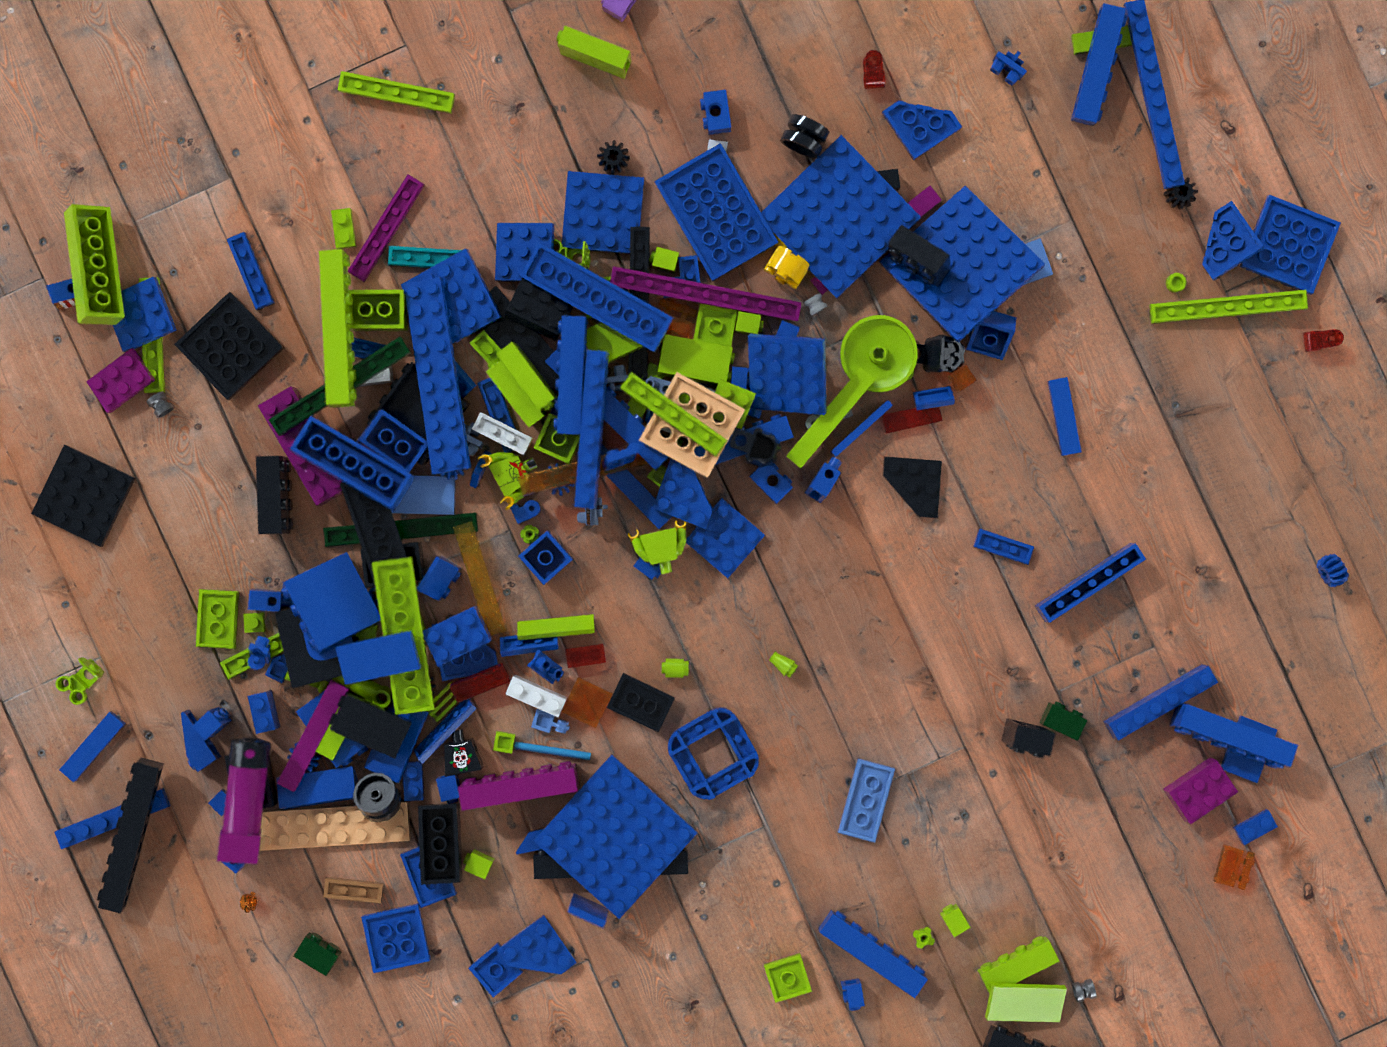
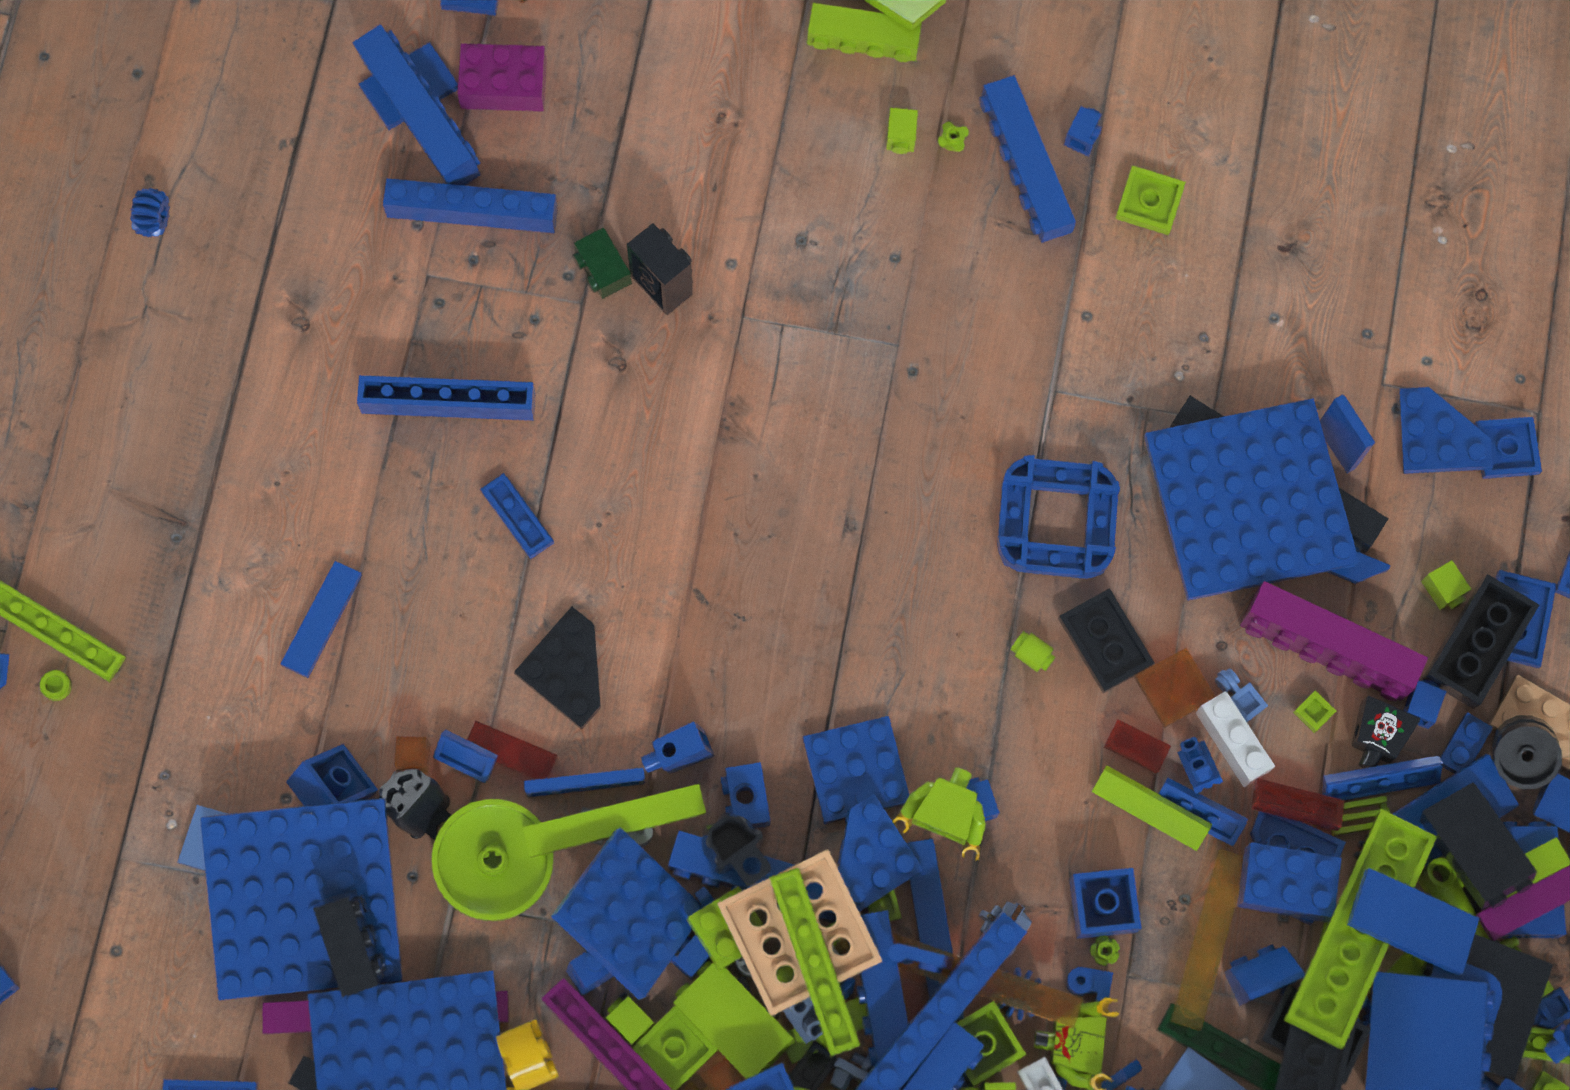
camera: 150 degrees left, 15 degrees down
(552, 750) = (1261, 661): dark azure bar -> none
(783, 664) = (893, 562): lime cone -> none
(815, 304) = (524, 983): light grey wheel -> none
(866, 800) = (907, 336): medium blue tile -> none

